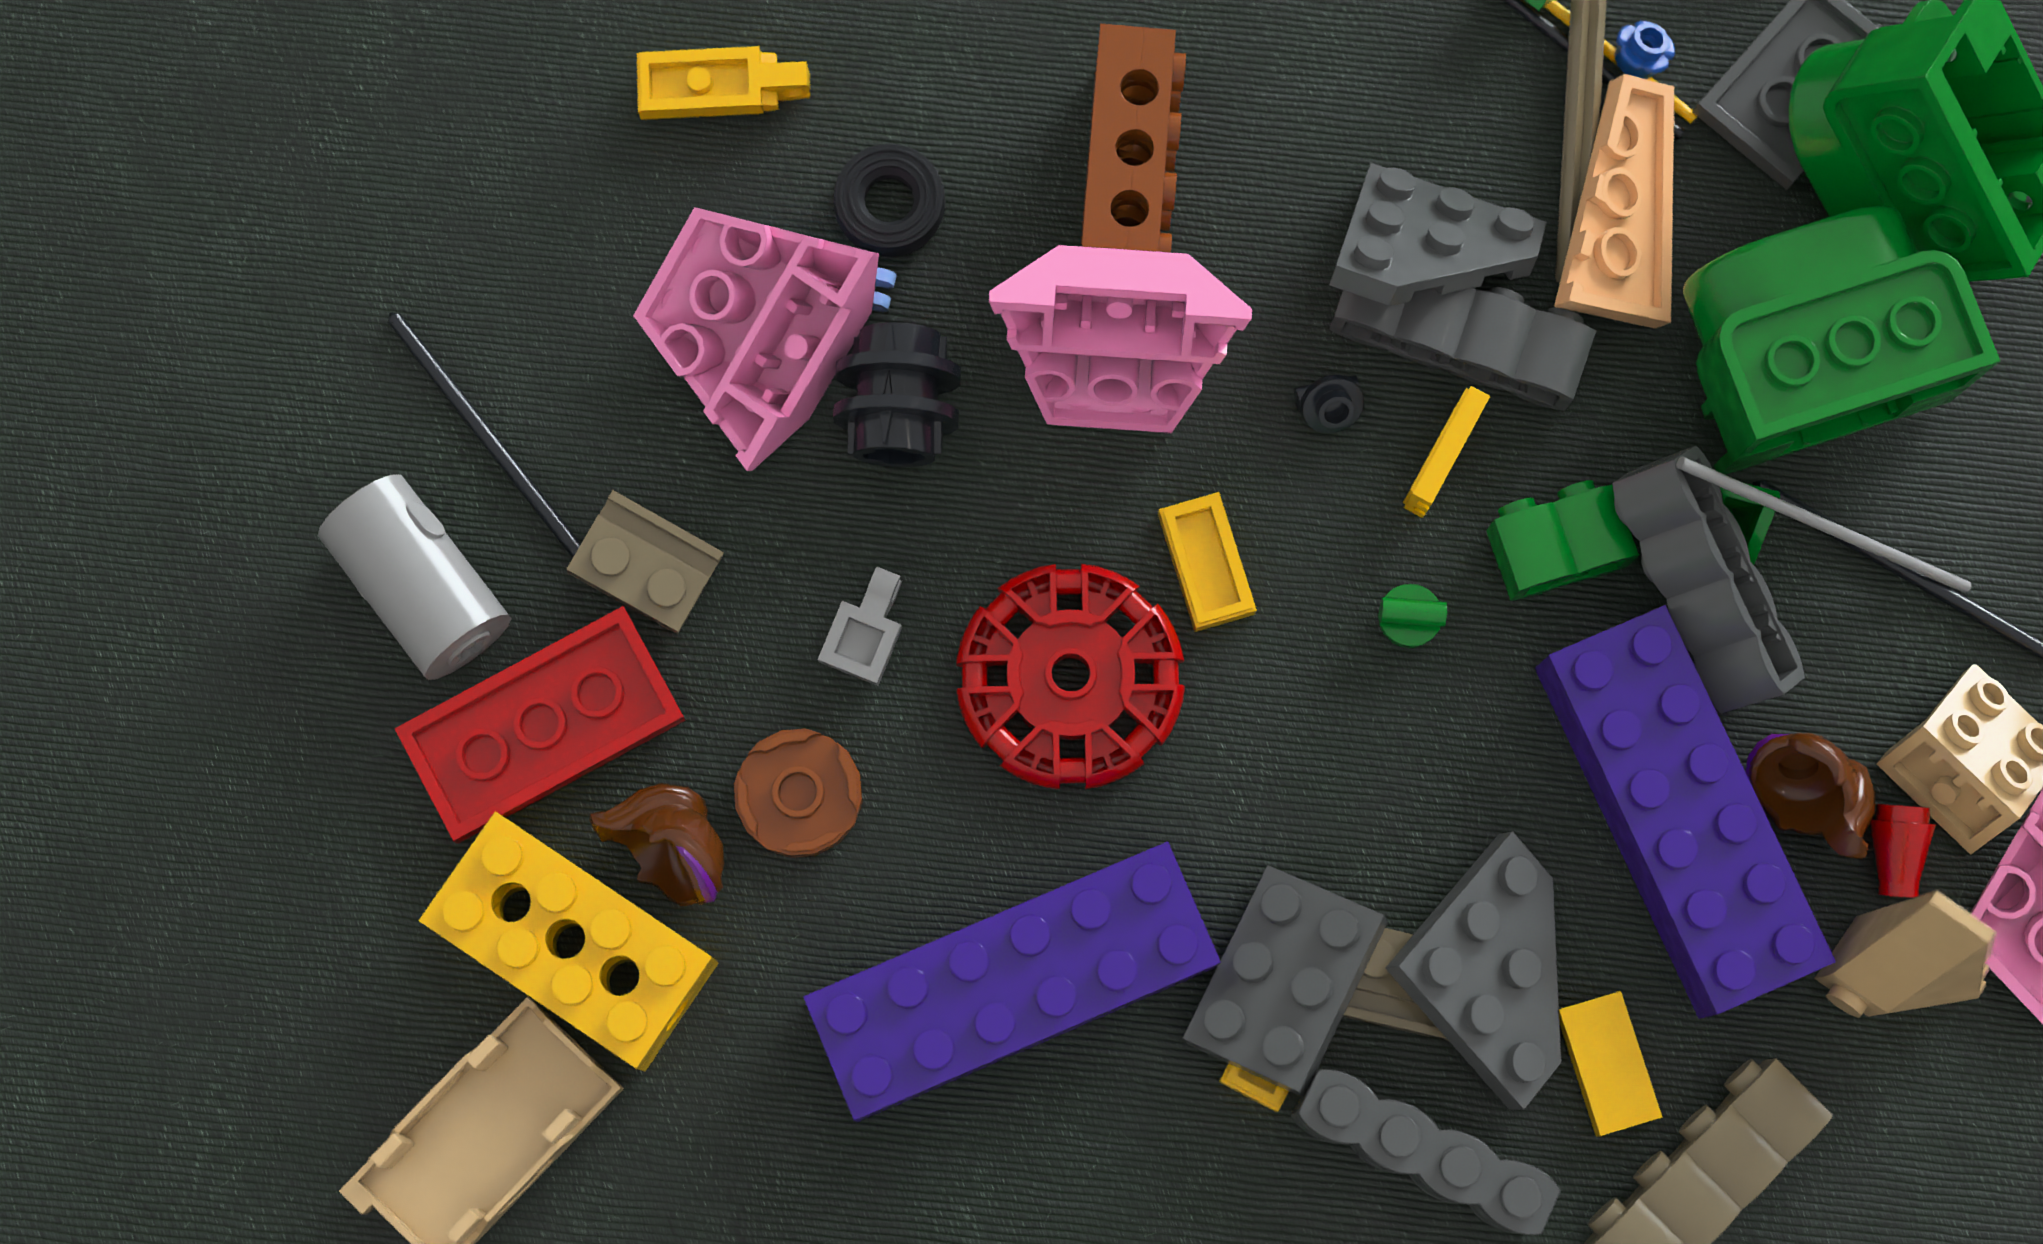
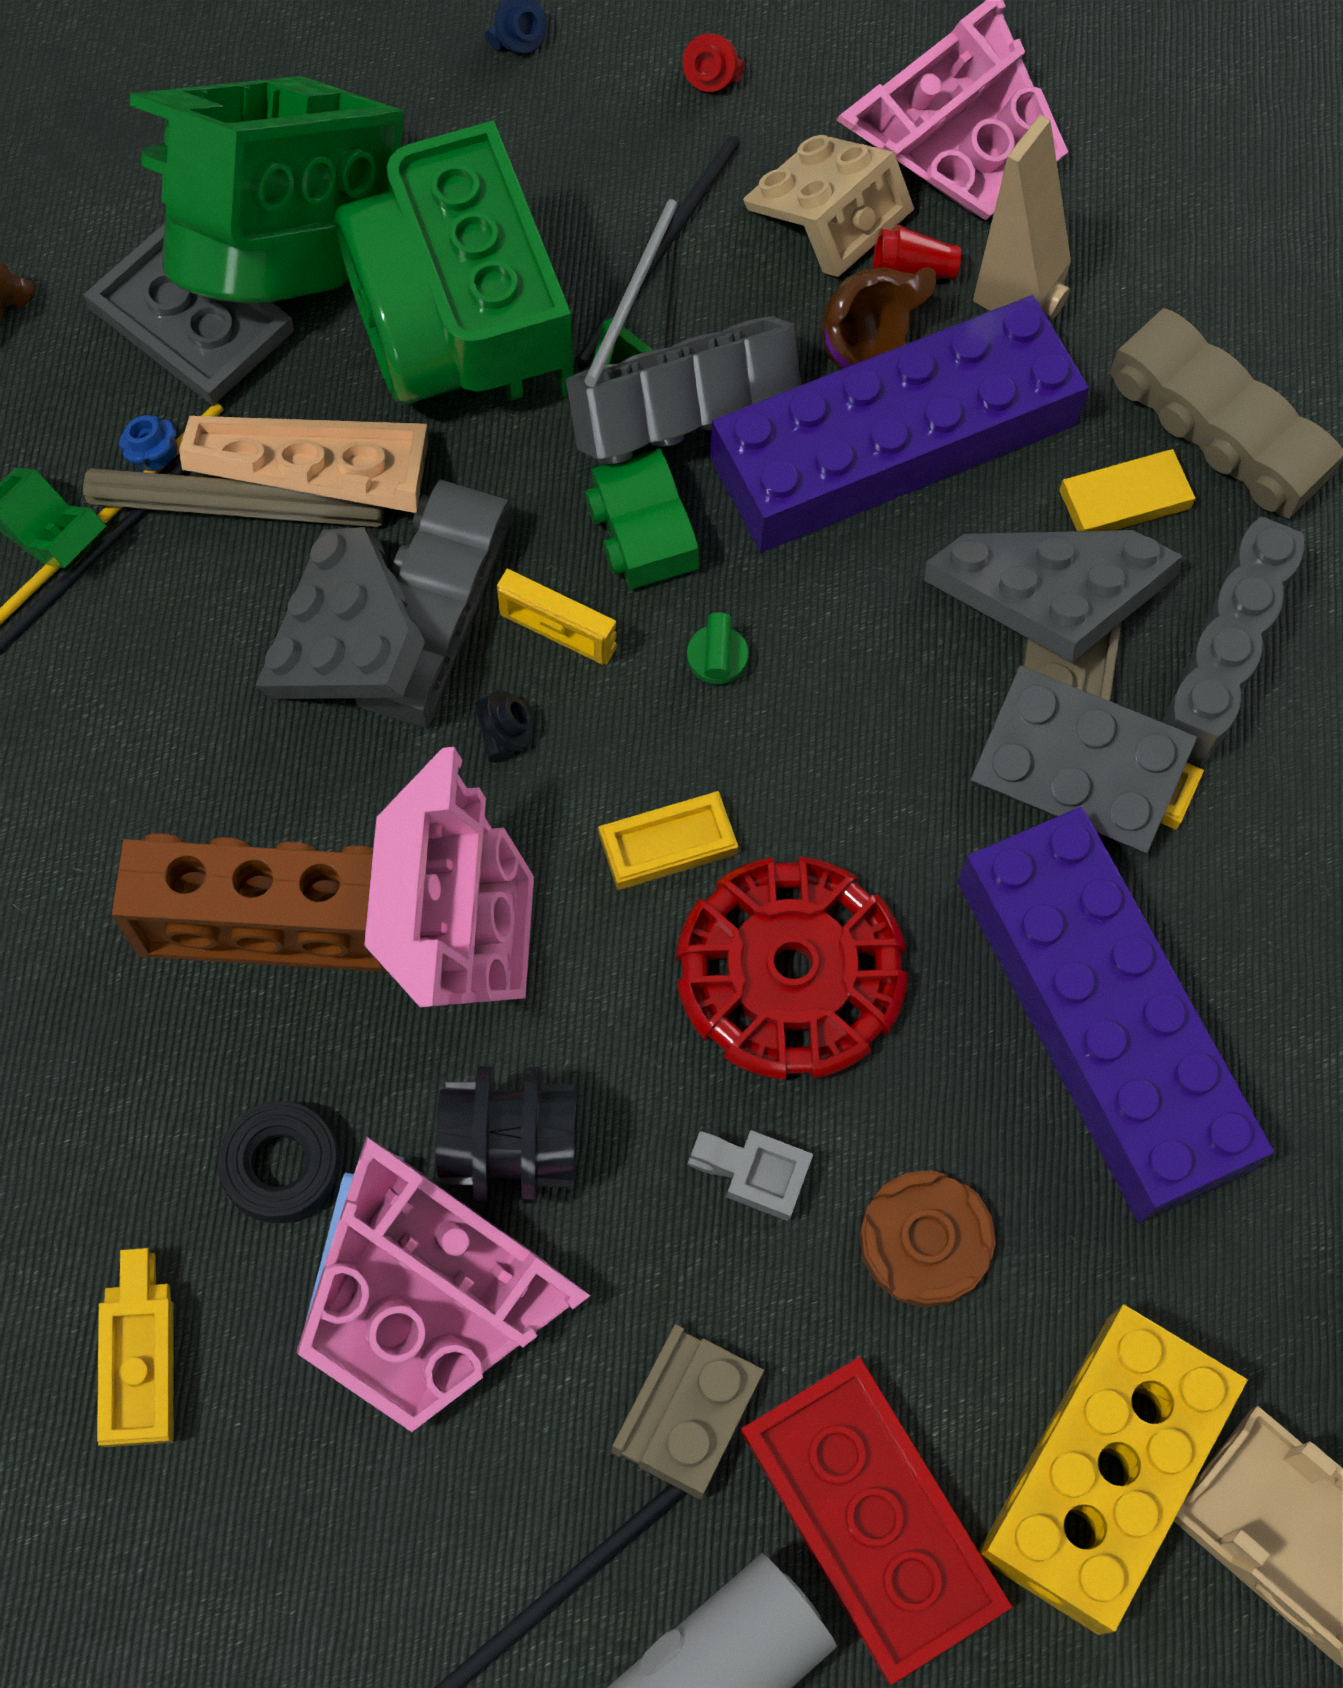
camera: 90 degrees left, 10 degrees down
(669, 840) = (995, 1365): reddish brown hair -> none

